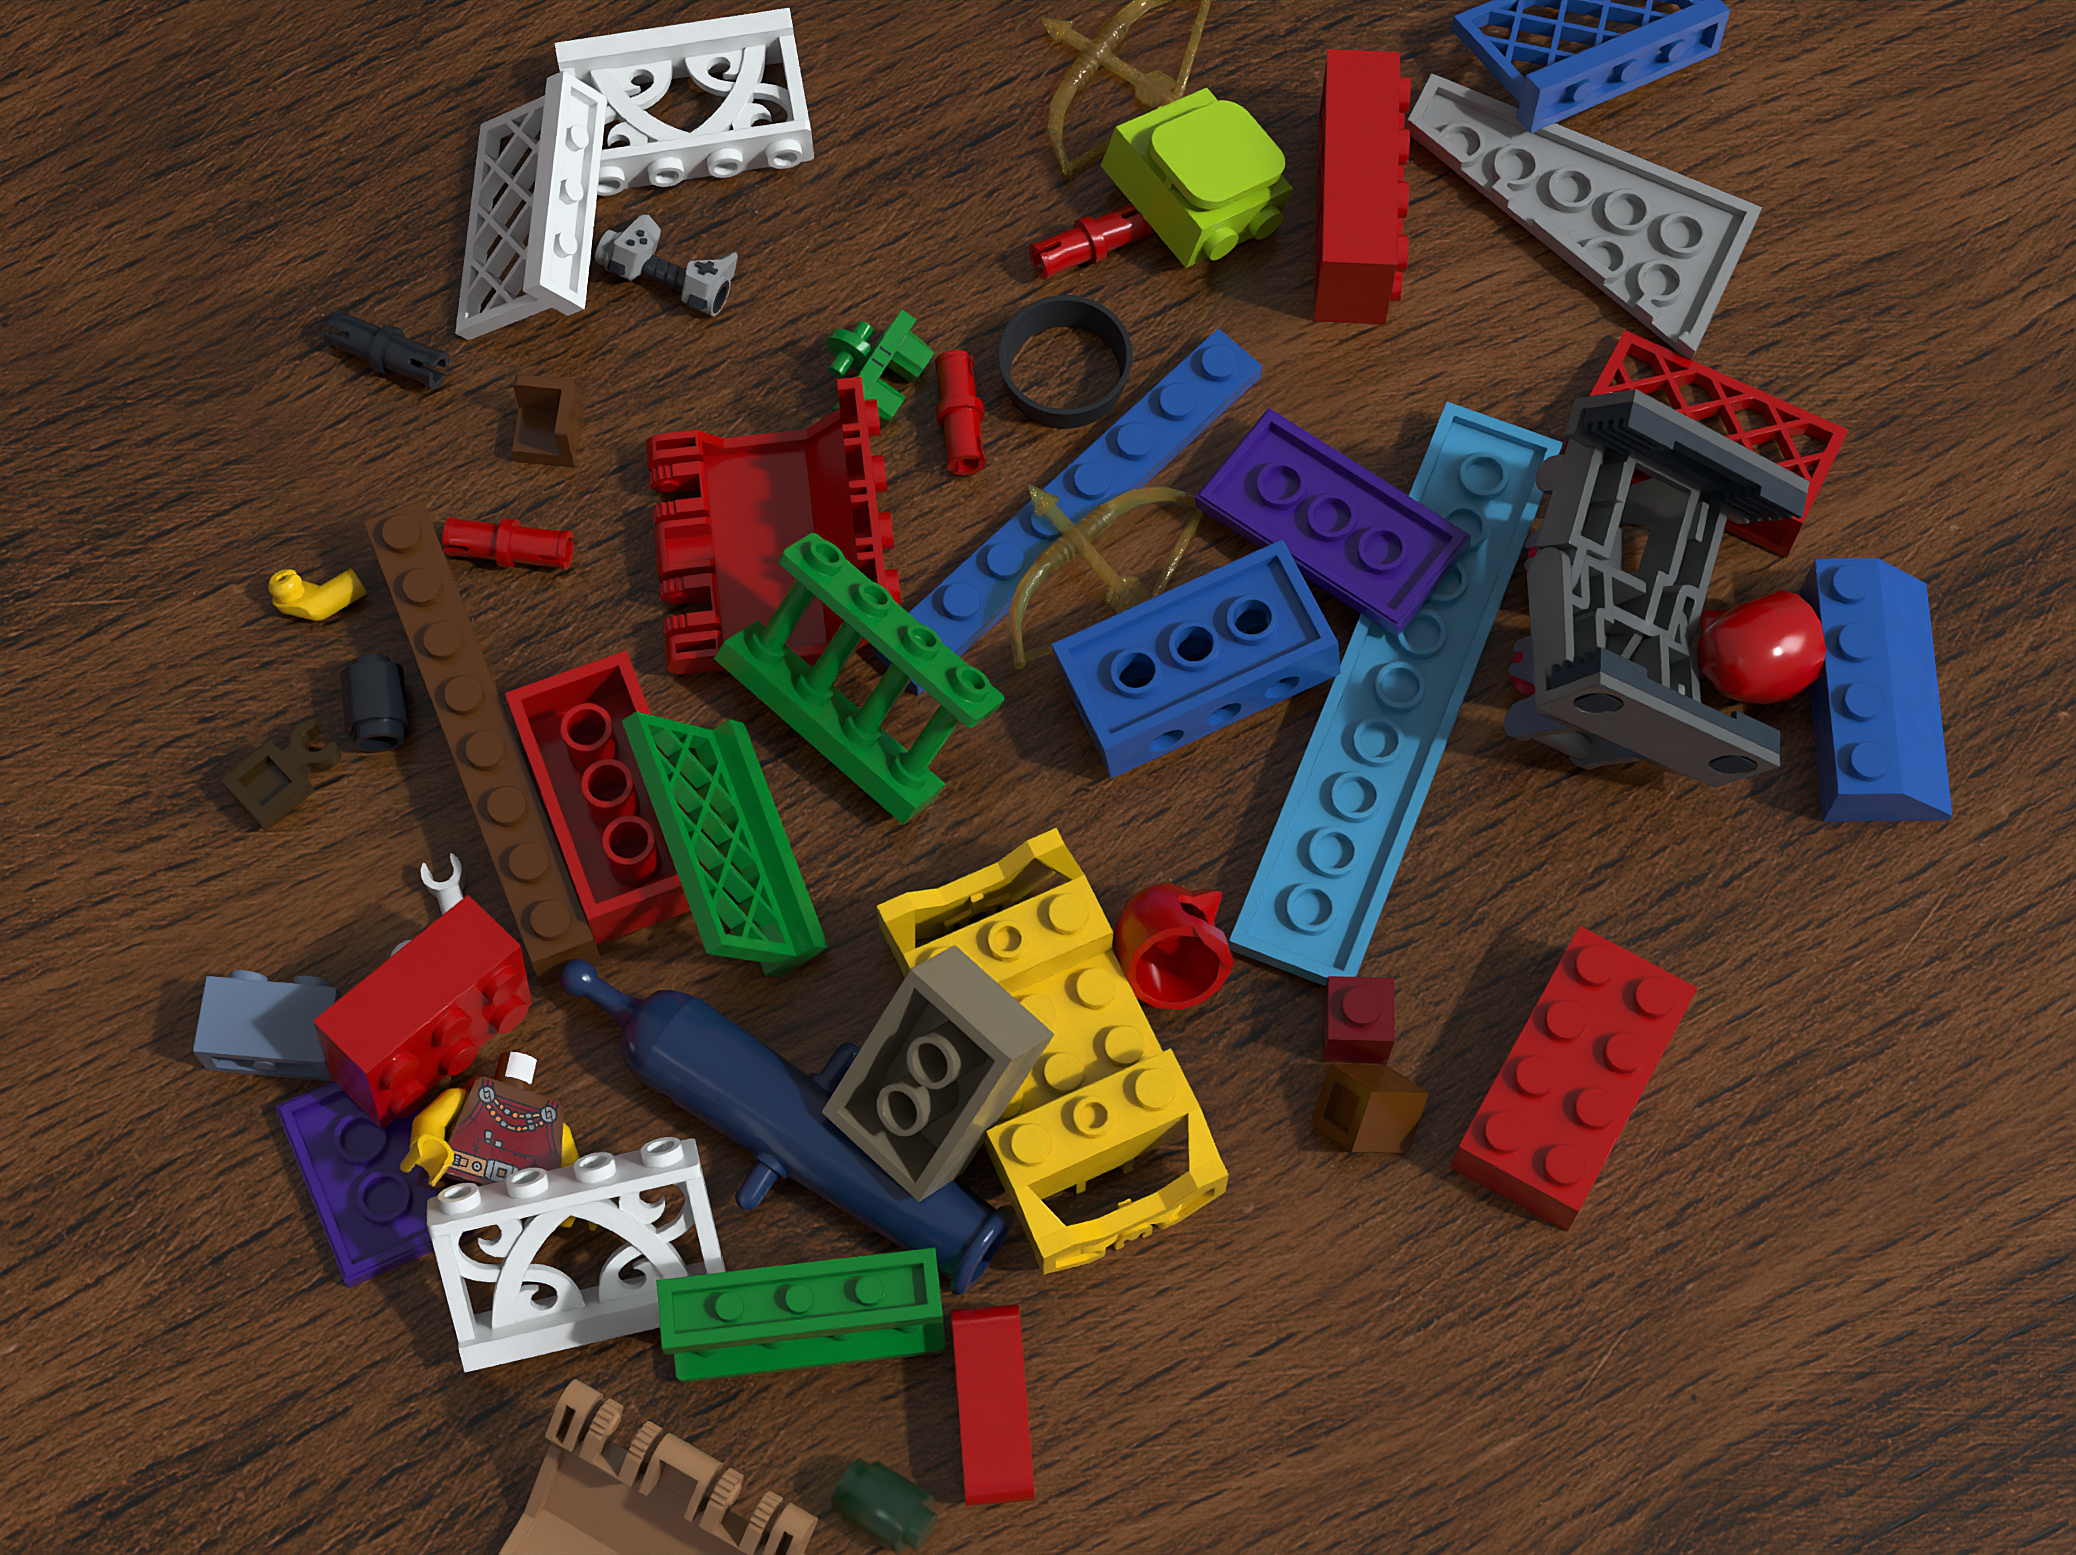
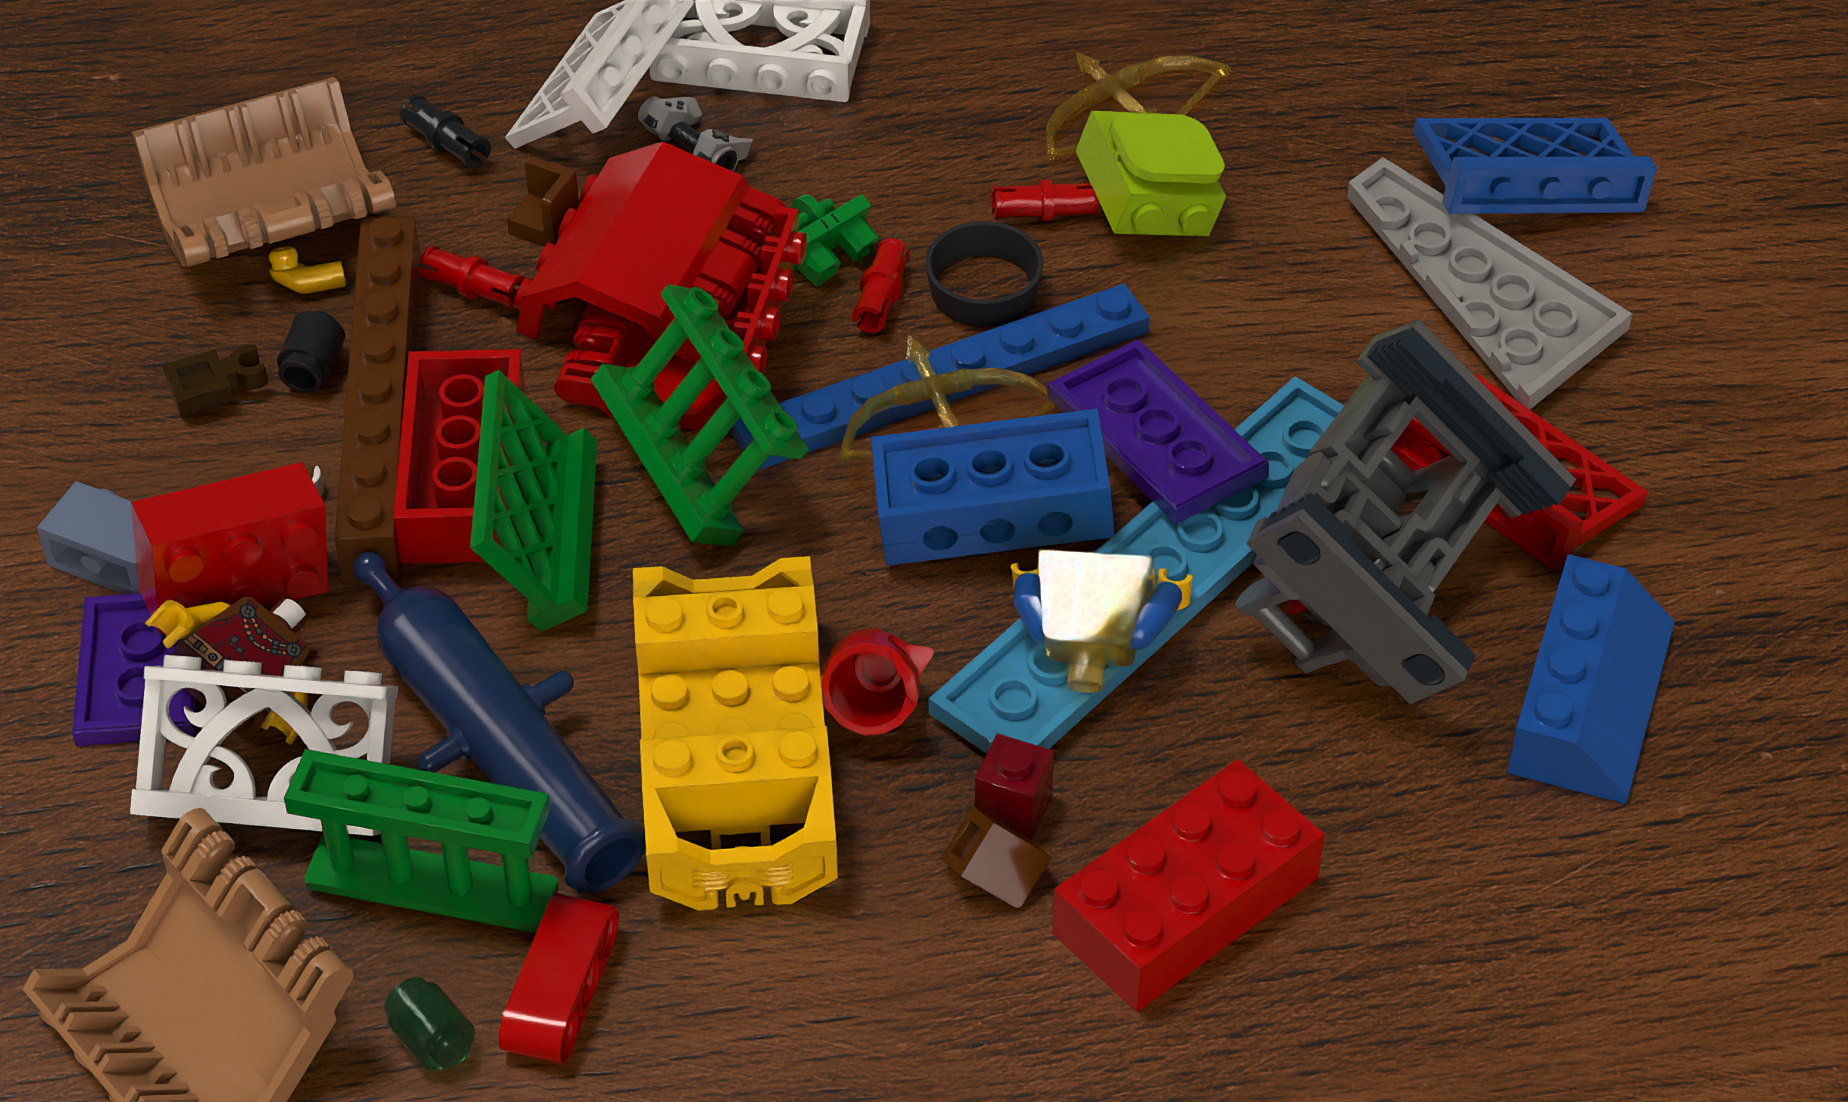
camera: 20 degrees right, 20 degrees down
(217, 493) = (258, 172): none -> medium nougat hinge
(698, 453) = (647, 225): none -> red hinge
(937, 1072) = (615, 677): dark tan brick -> none
(1361, 187) = (1281, 209): red brick -> none
(1367, 791) = (1095, 609): none -> clear yellow torso
(1762, 648) = (1494, 609): red piece -> none

